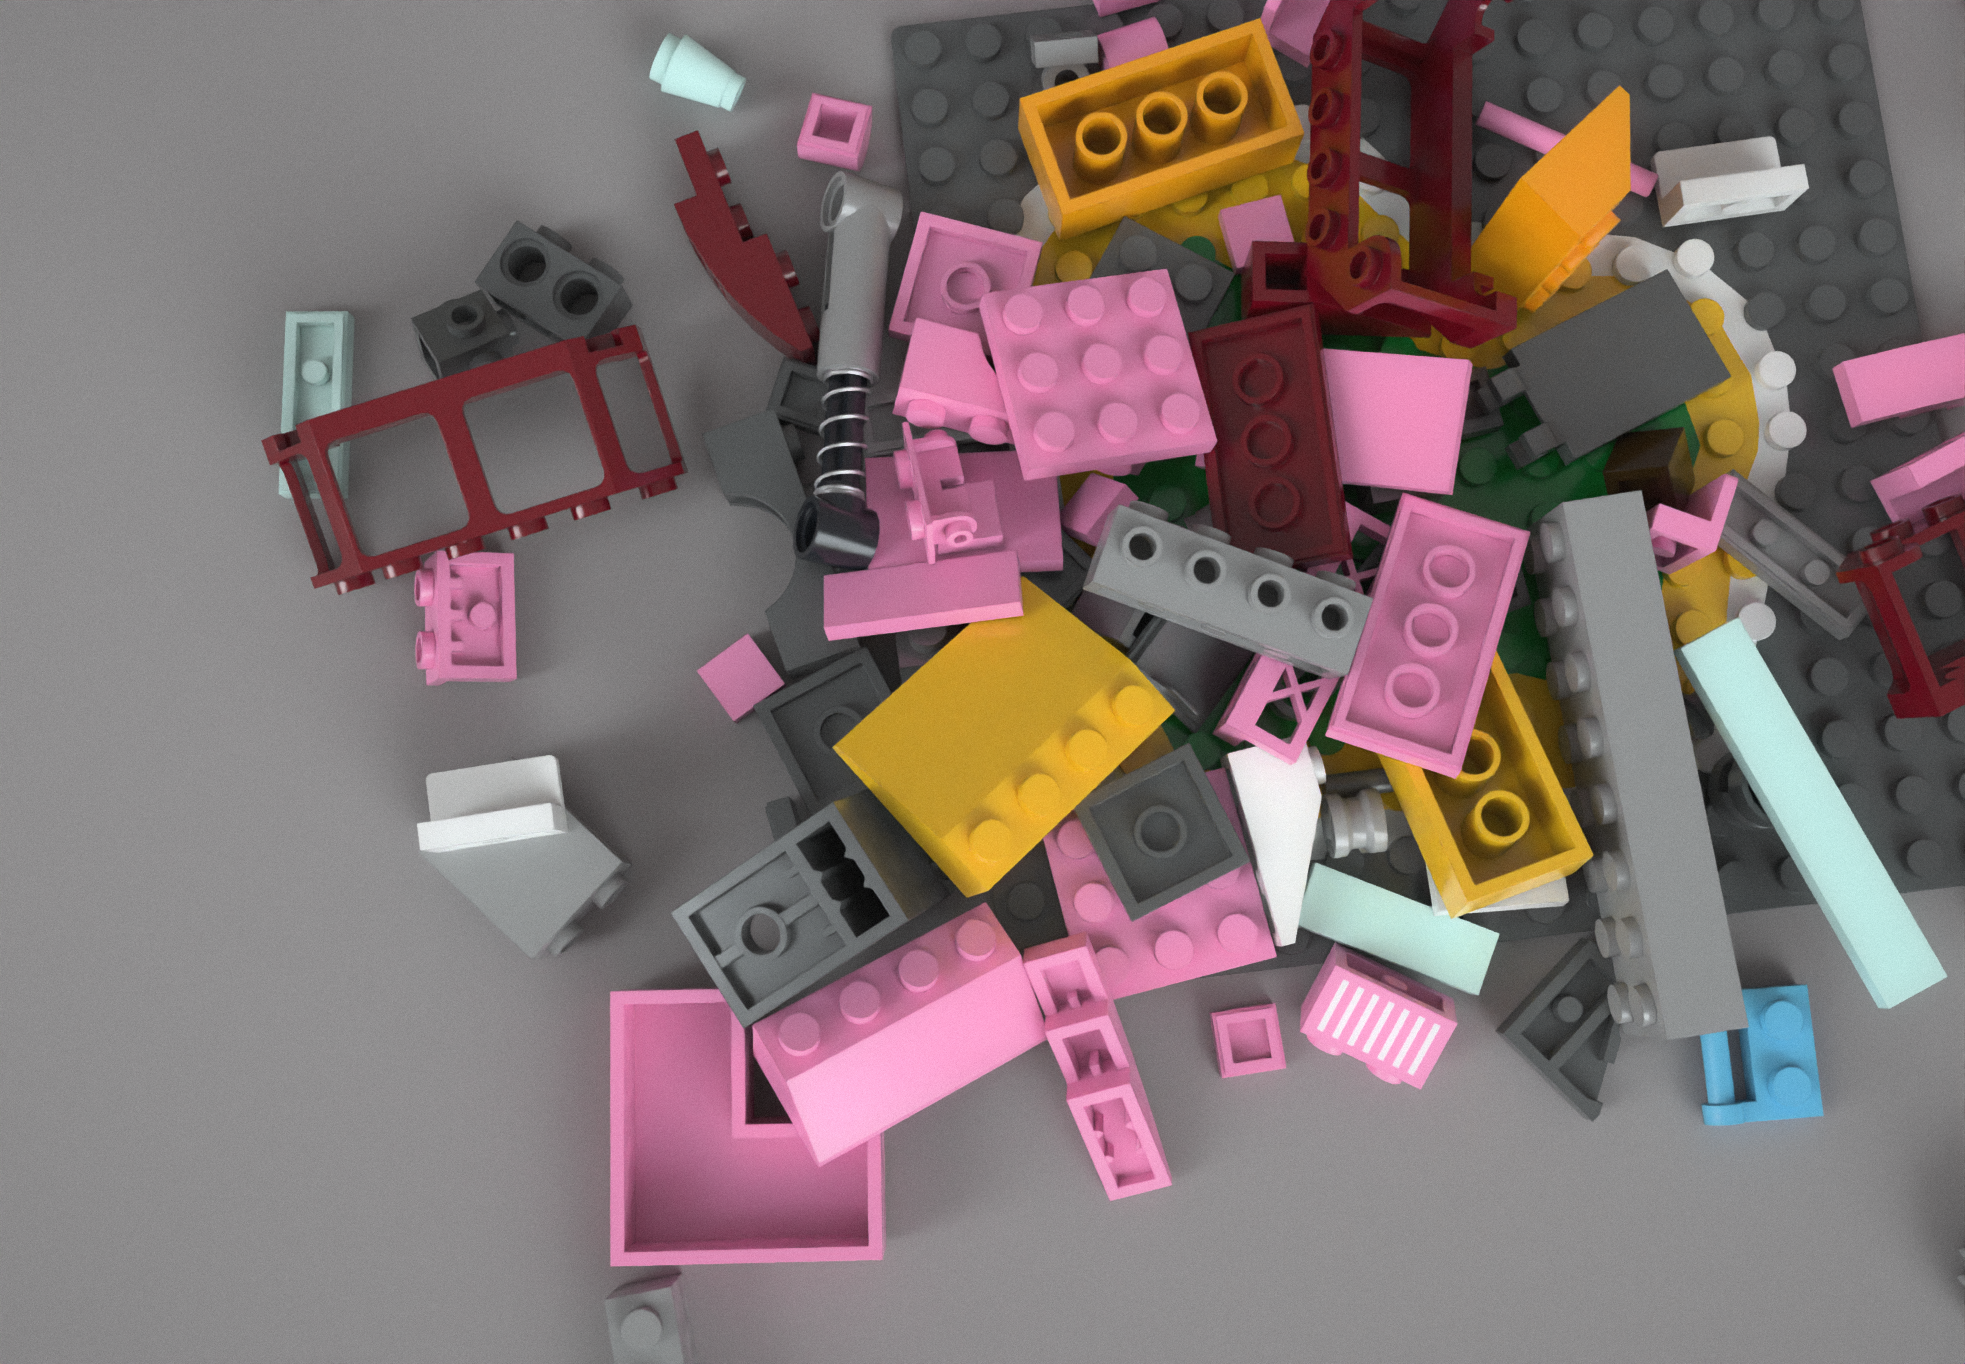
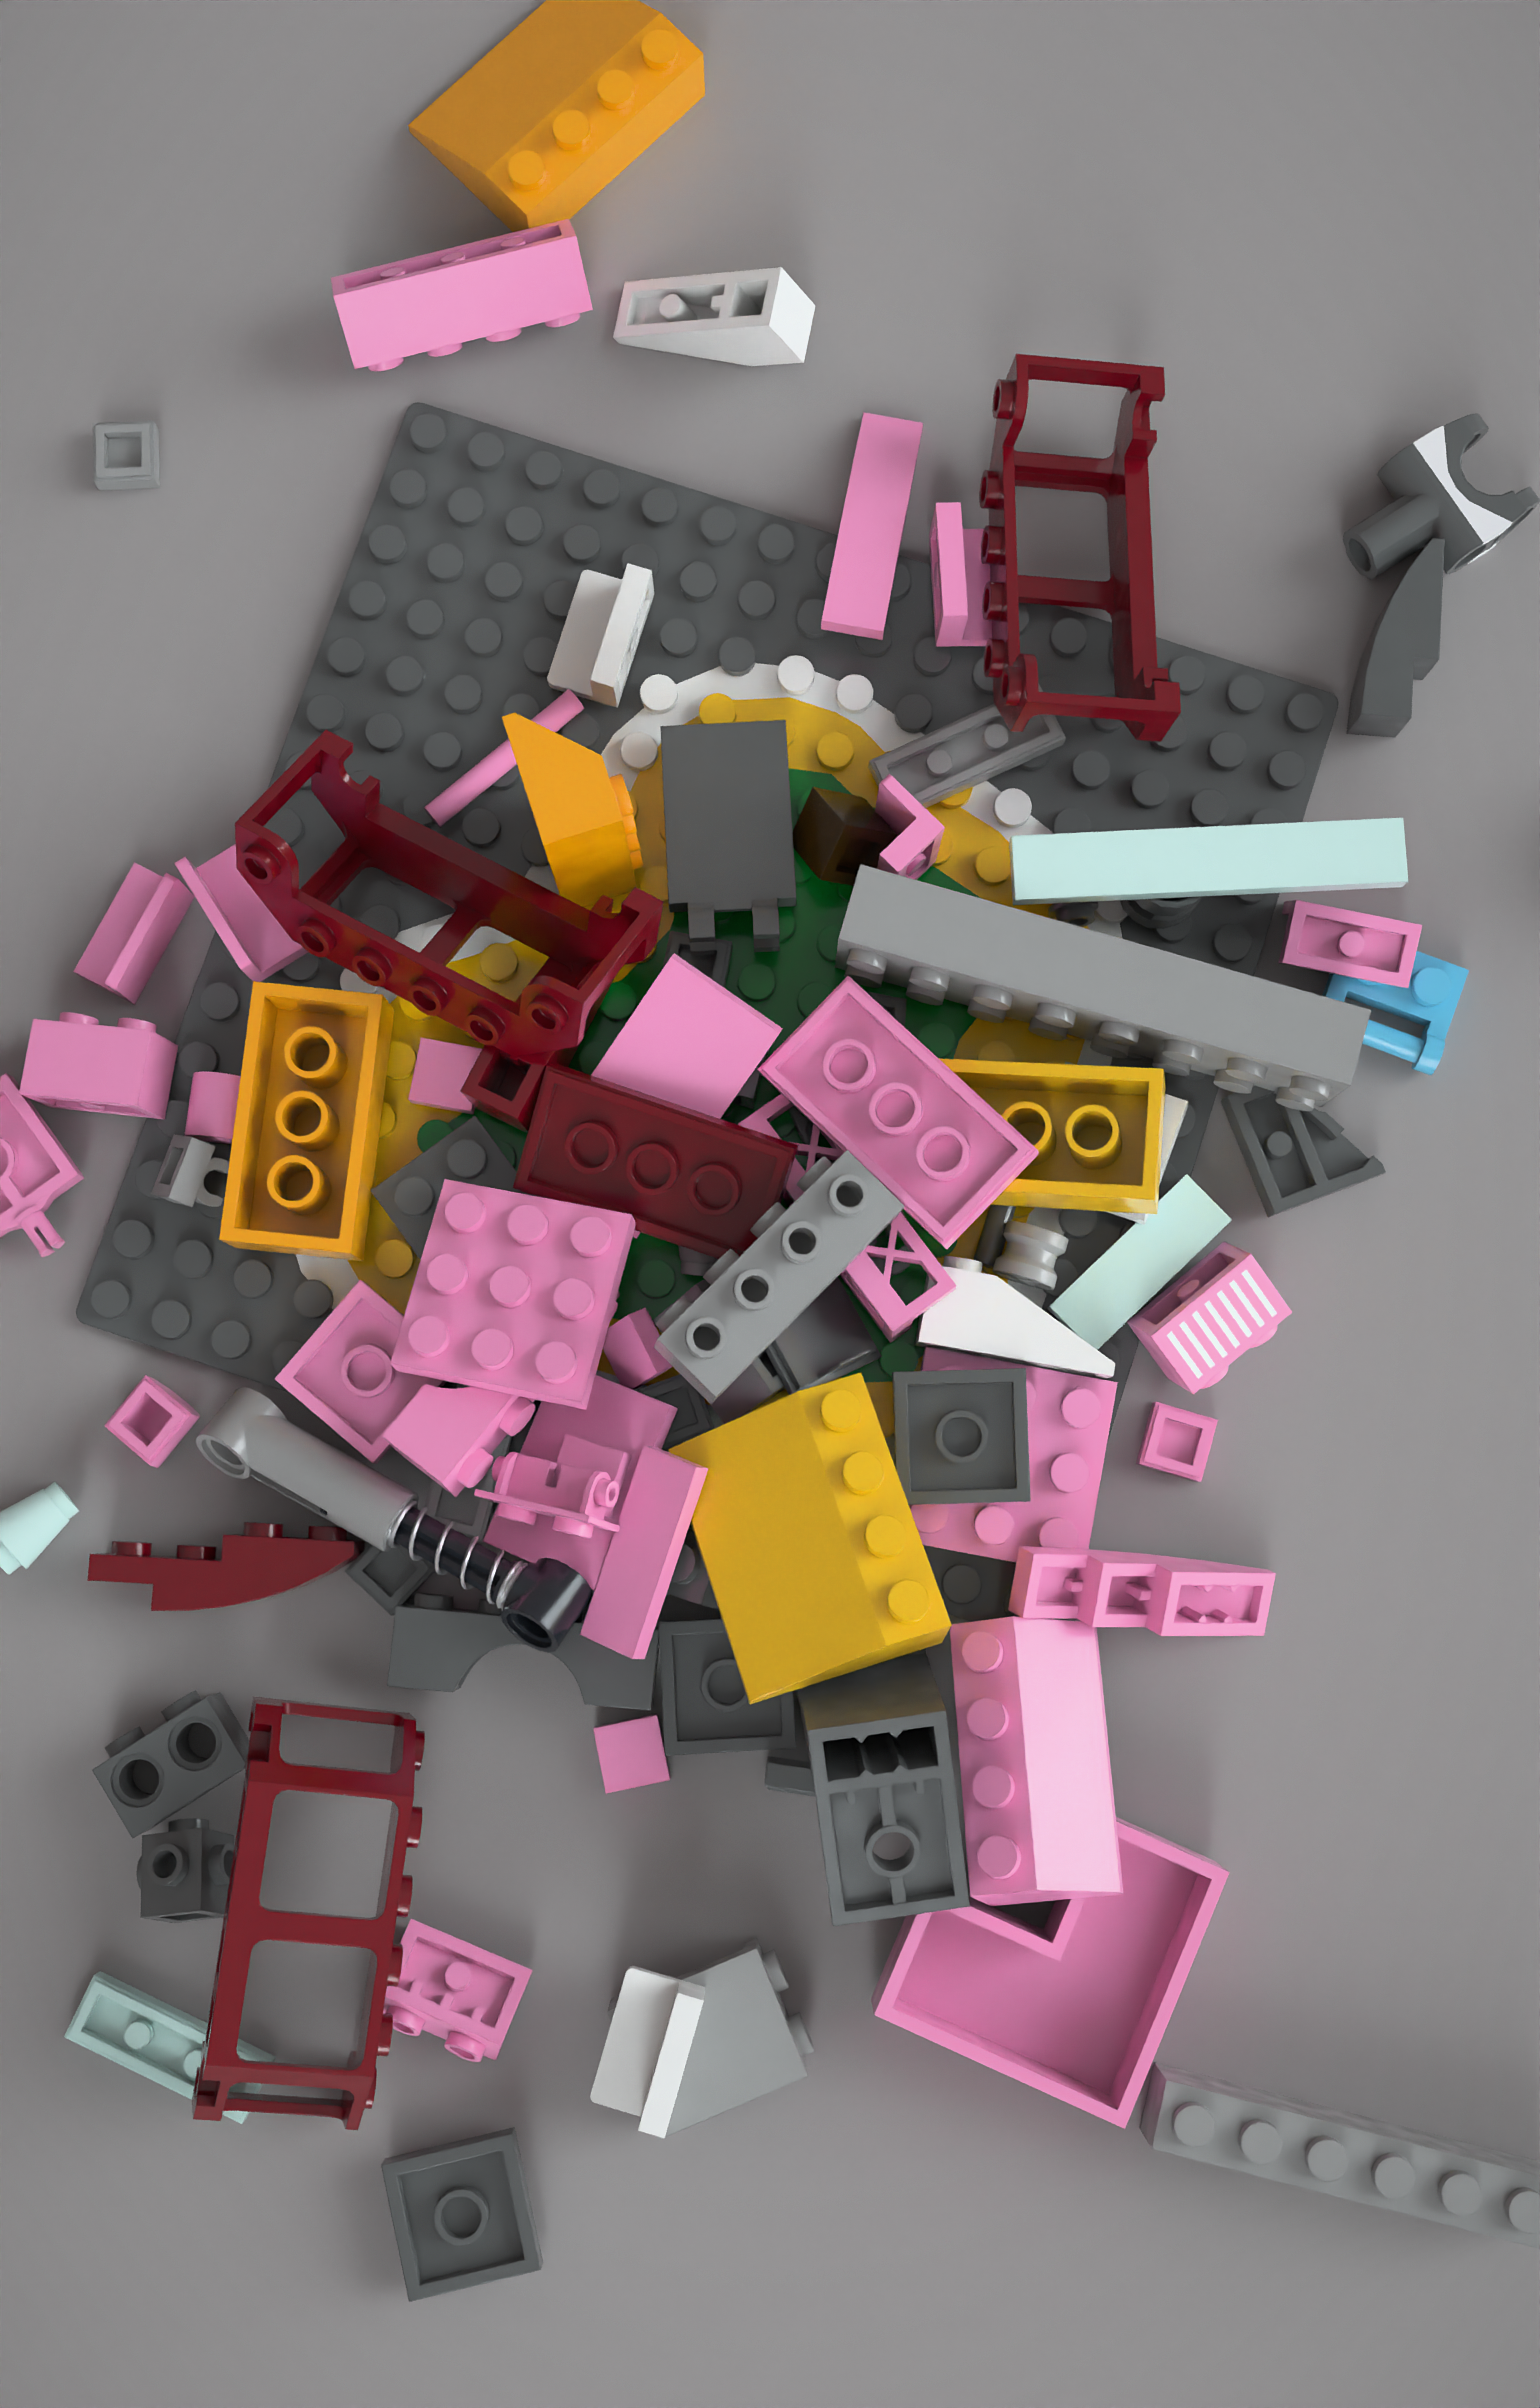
camera: 65 degrees left, 0 degrees up
(283, 716) = (462, 2214): none -> dark grey plate
(1793, 988) = (1349, 943): none -> bright pink panel

